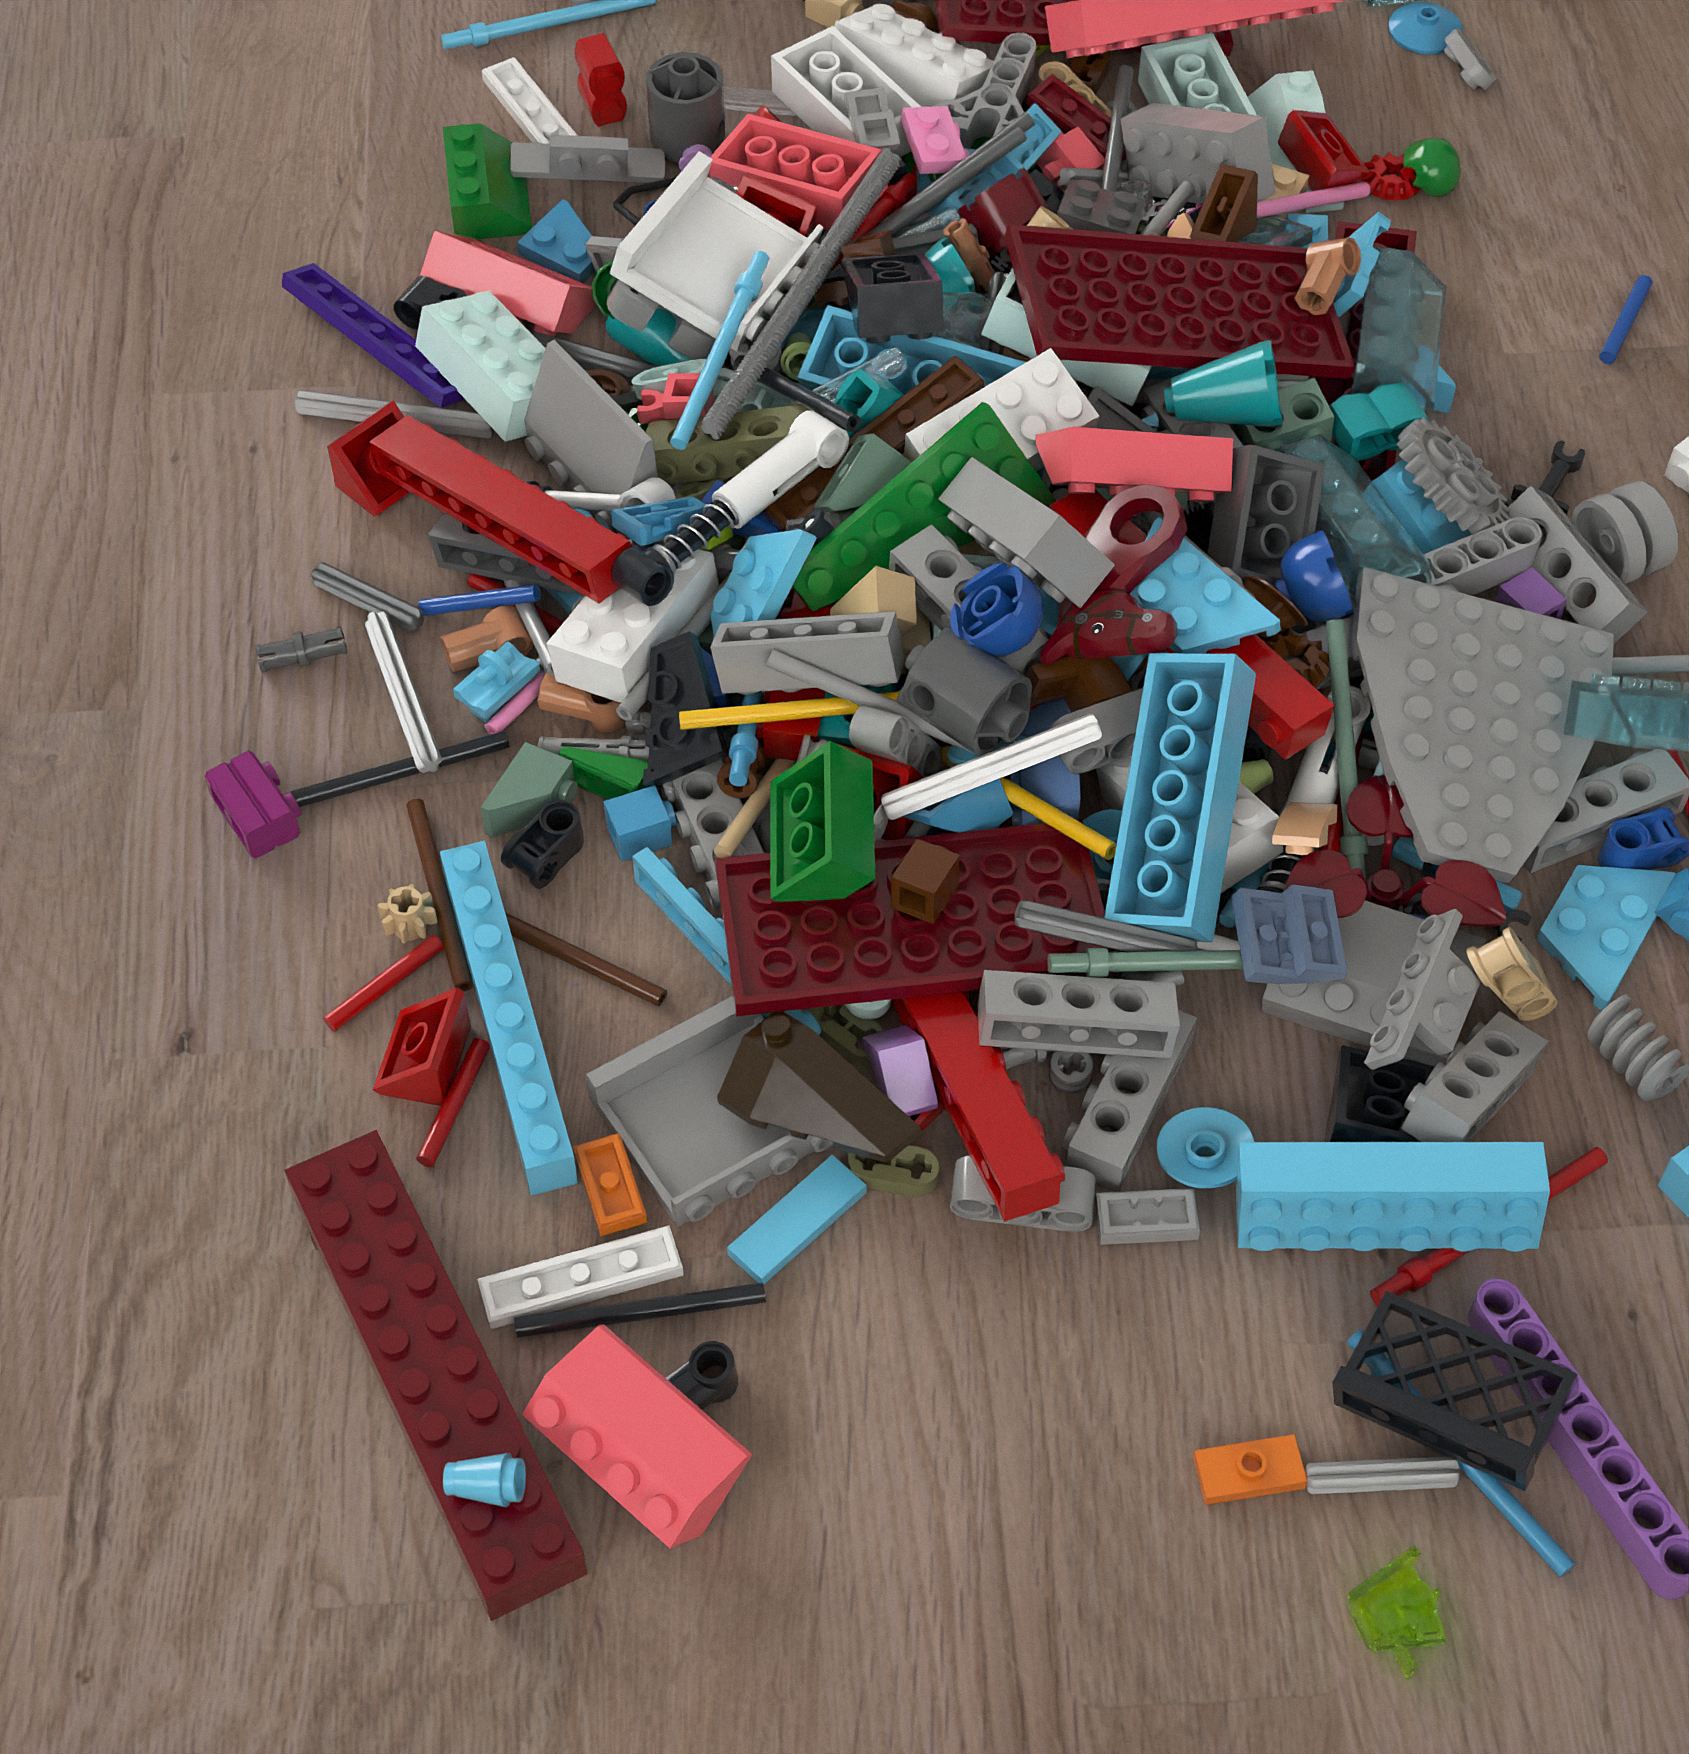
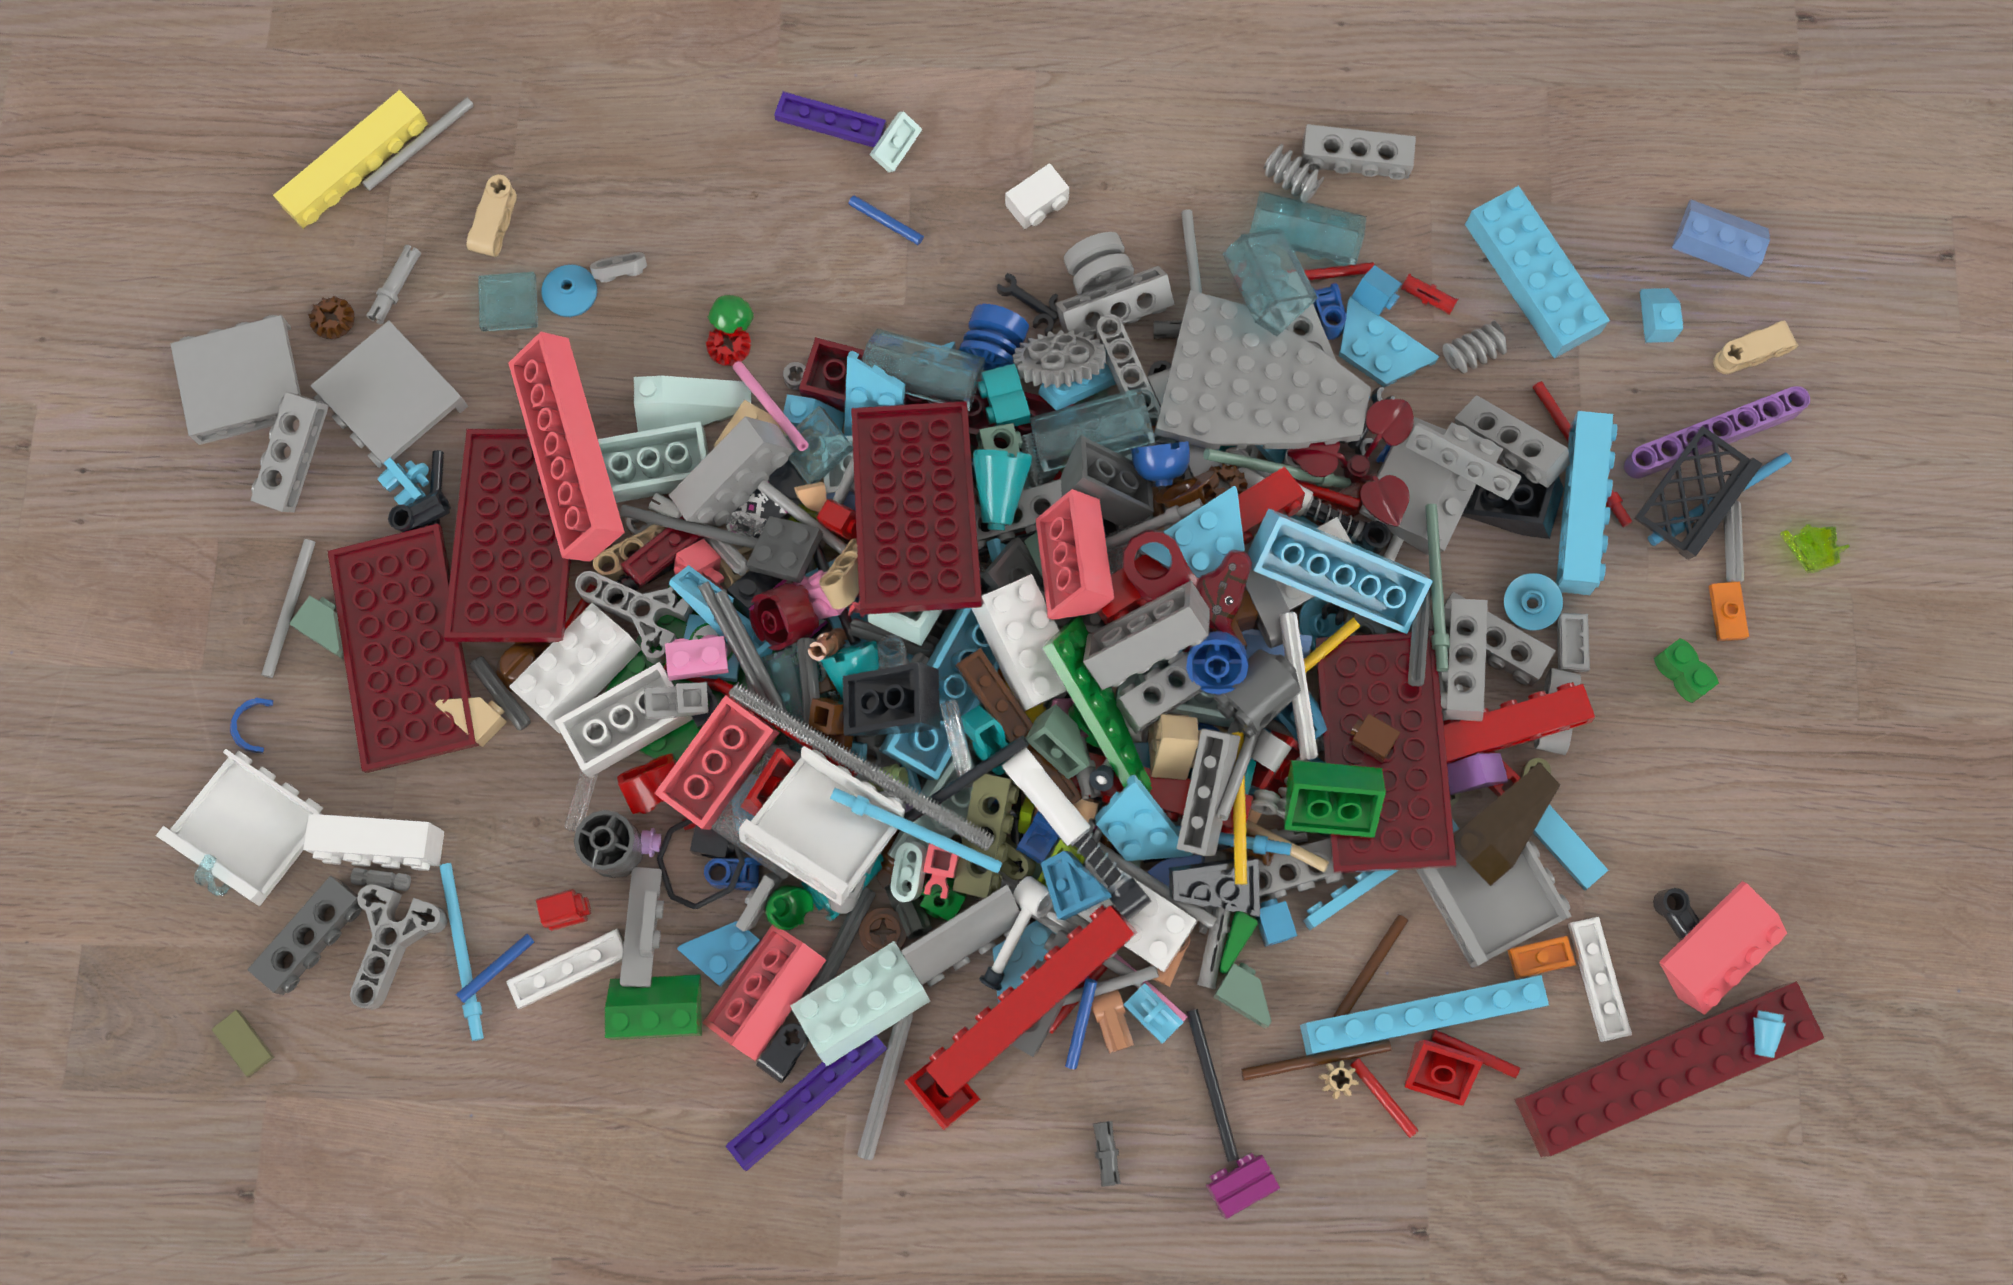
camera: 85 degrees left, 20 degrees up
(367, 596) = (1059, 1106): axle -> none
(403, 692) = (1152, 1080): axle -> none
(528, 43) = (495, 968): none -> blue bar
(542, 850) = (1290, 987): black piece -> none
(639, 1310) = (1622, 944): black piece -> none
(1123, 1386) = (1689, 675): none -> green brick
(1229, 207) = (809, 460): reddish brown slope -> none
(1289, 935) = (1427, 525): sand blue slope -> none
(1304, 826) = (1336, 502): light nougat slope -> none
(1320, 150) = (717, 386): red slope -> none
(1327, 266) = (887, 399): nougat piece -> none
(1478, 424) = (994, 335): none -> blue wheel
(1513, 976) = (1436, 405): tan piece -> none
(1532, 593) = (1142, 332): medium lavender panel -> none

